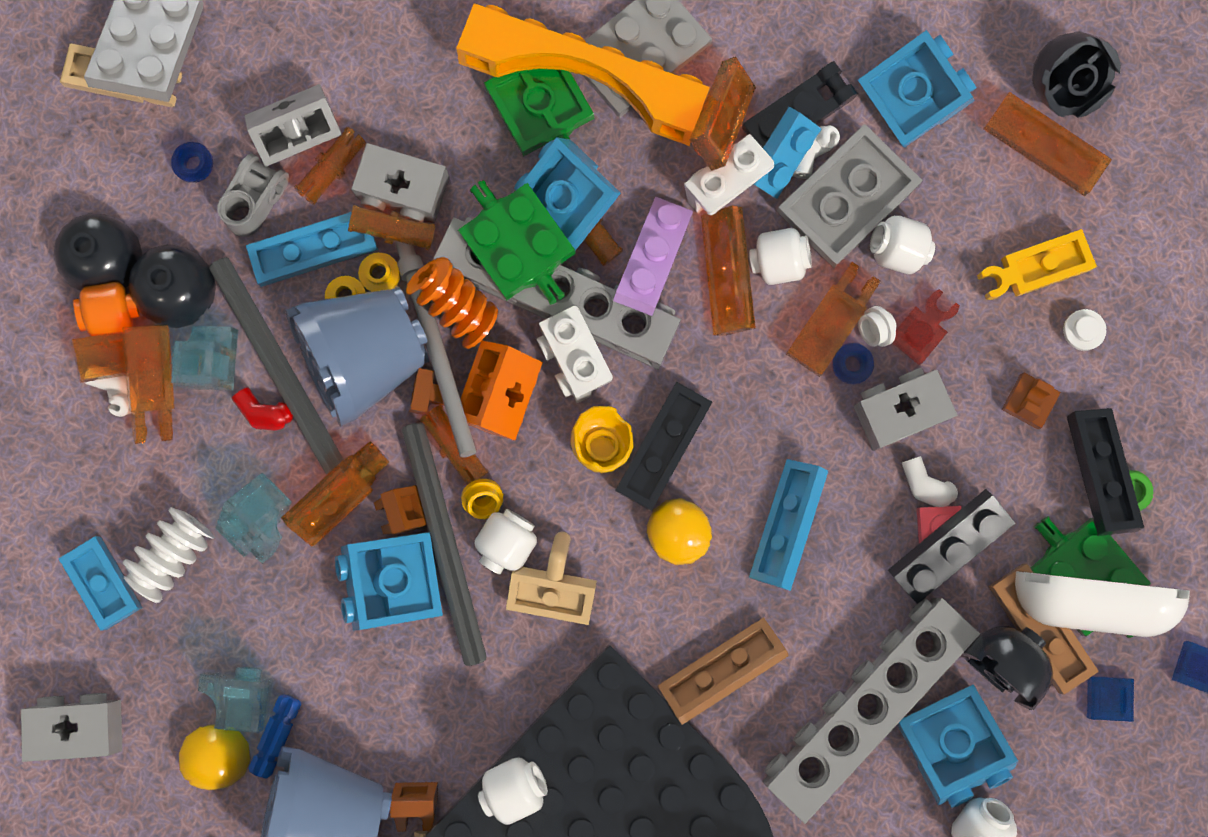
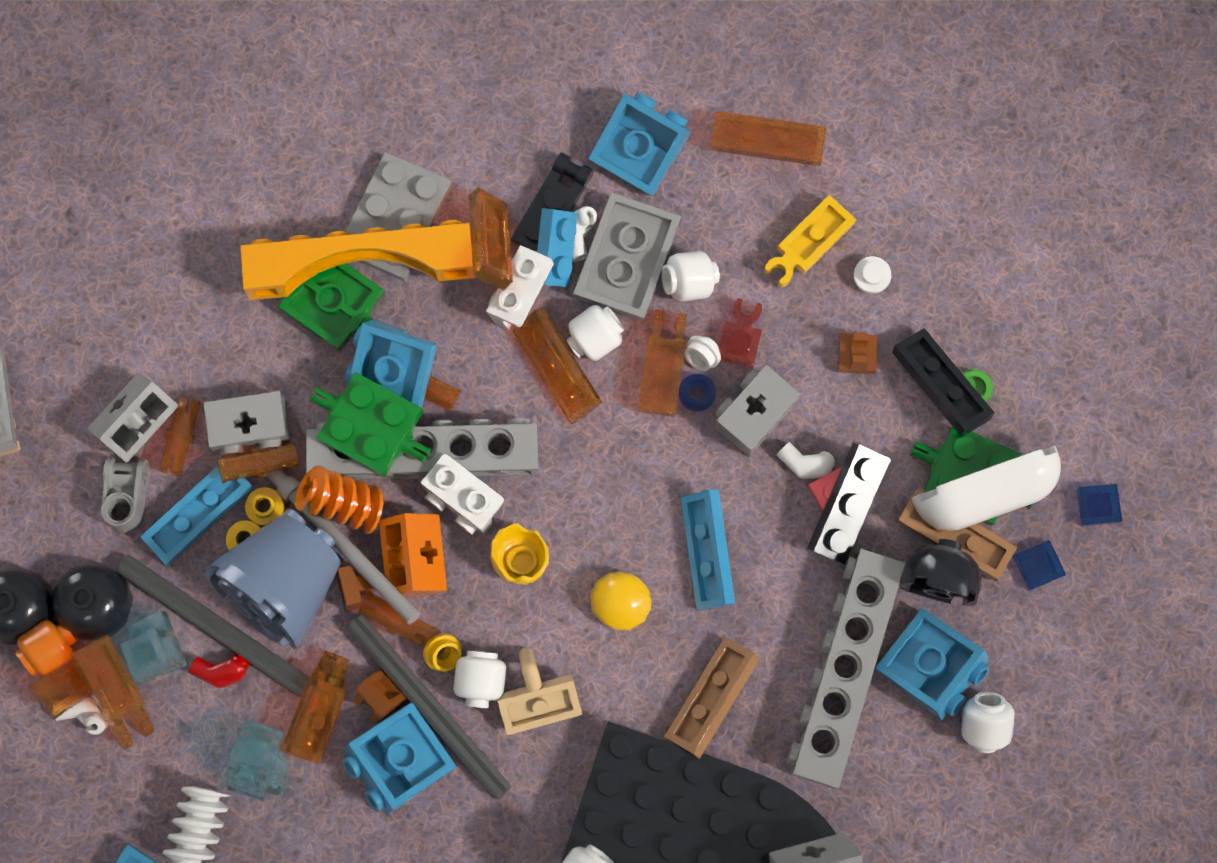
camera: 25 degrees left, 5 degrees down
(183, 154) = (47, 489): clear blue plate -> none
(653, 256) = (489, 382): lavender plate -> none
(663, 446) = (573, 536): black plate -> none
(1075, 74) = (762, 72): black cylinder -> none

